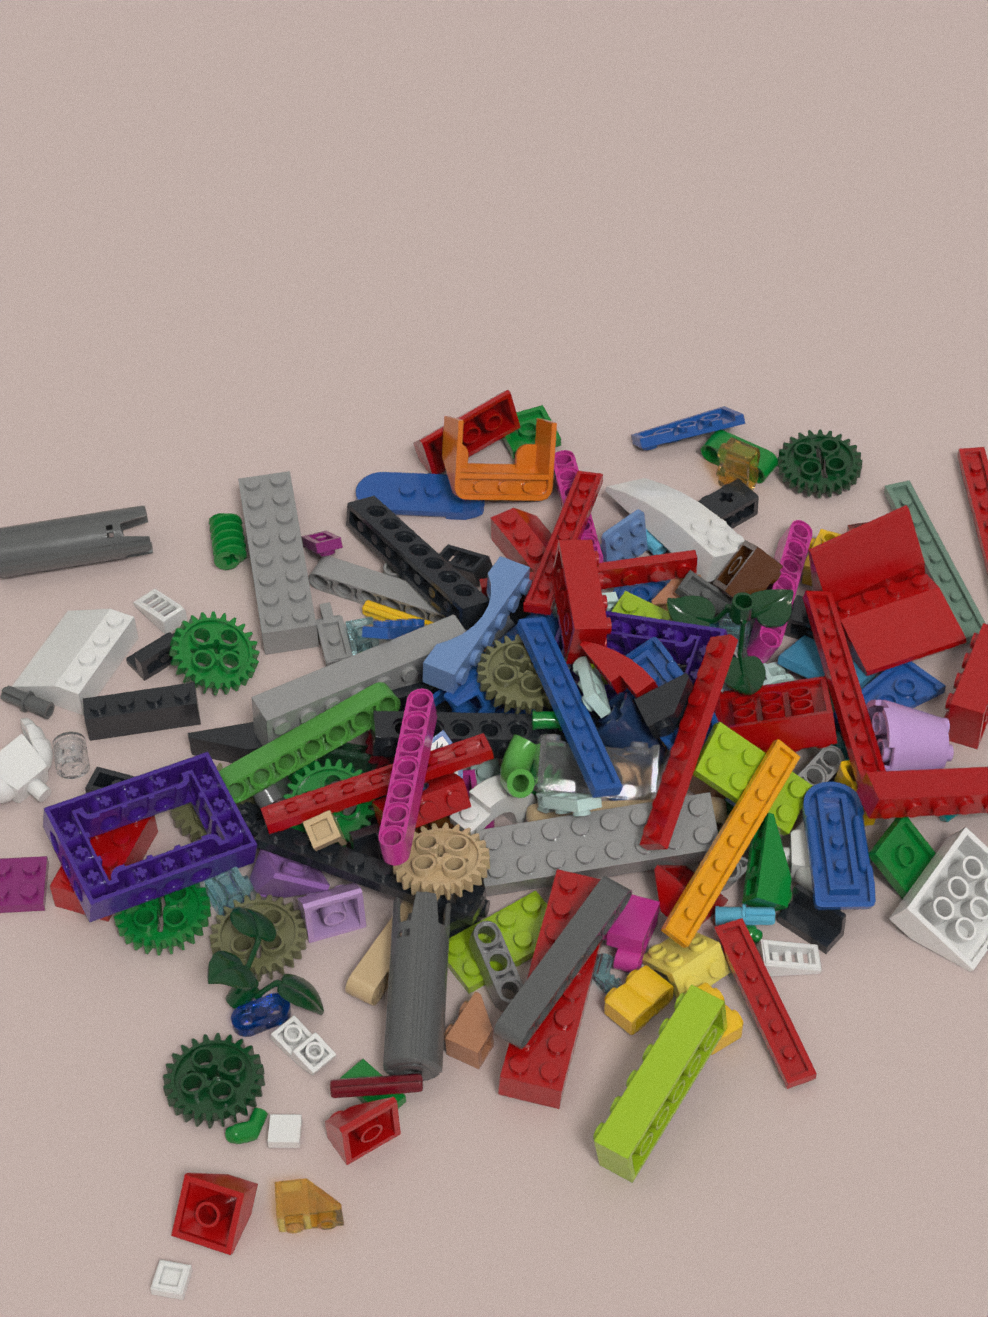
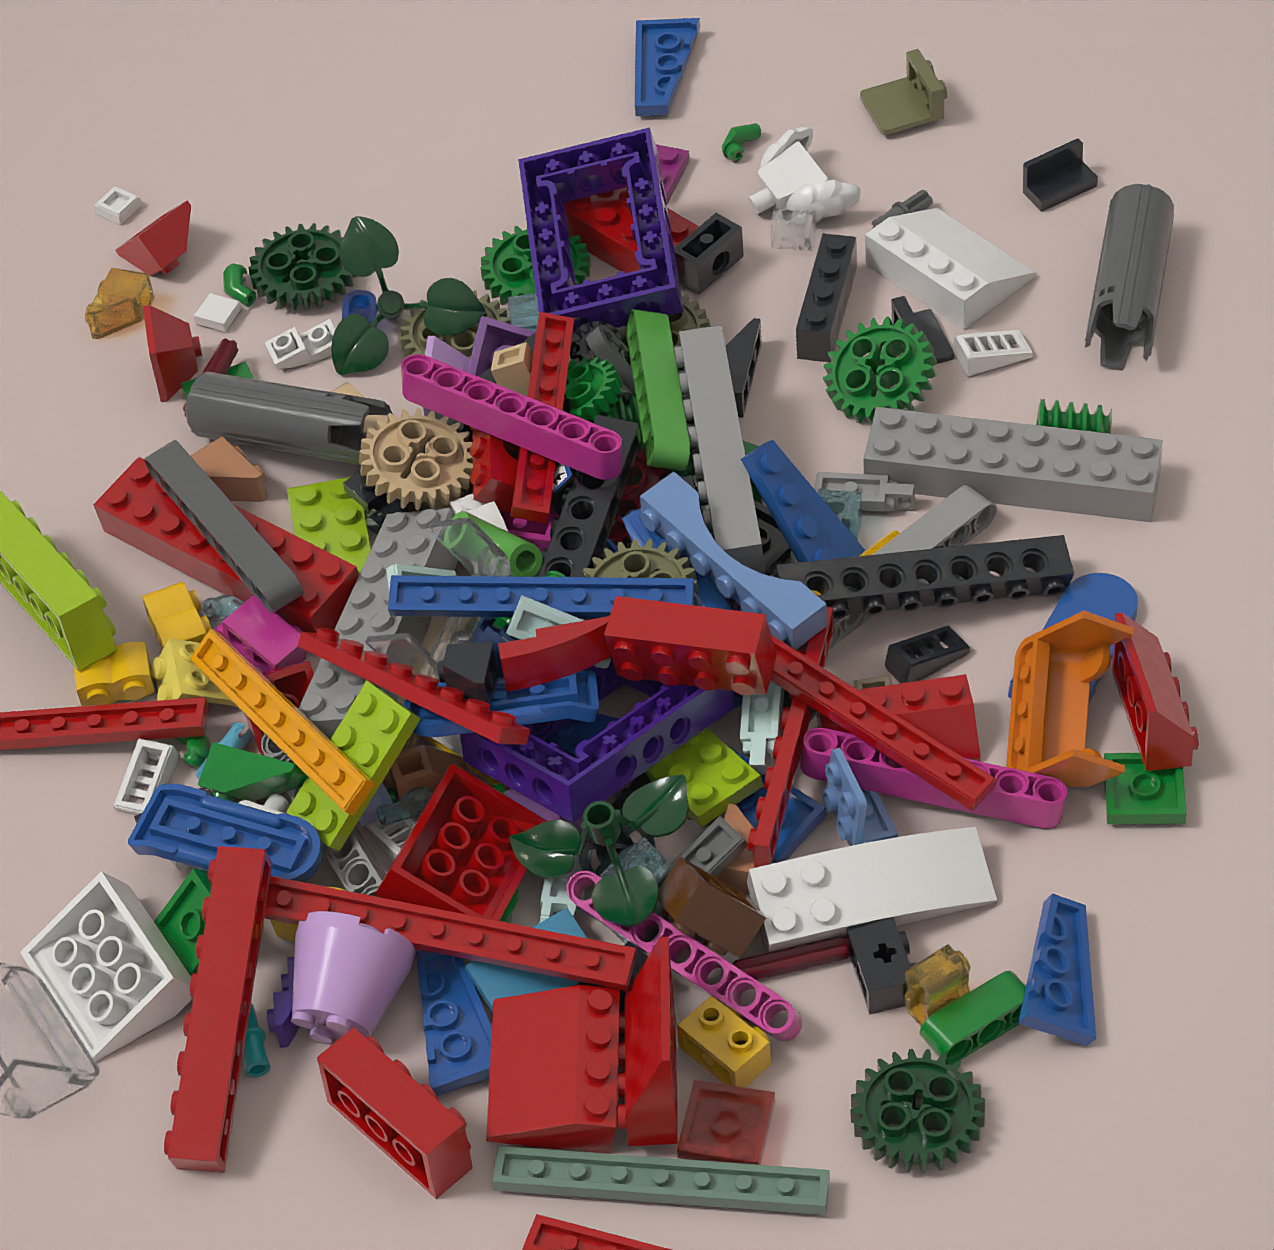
camera: 115 degrees right, 0 degrees up
(322, 543) = (1019, 507): magenta plate -> none
(495, 951) = (288, 497): flat silver beam -> none

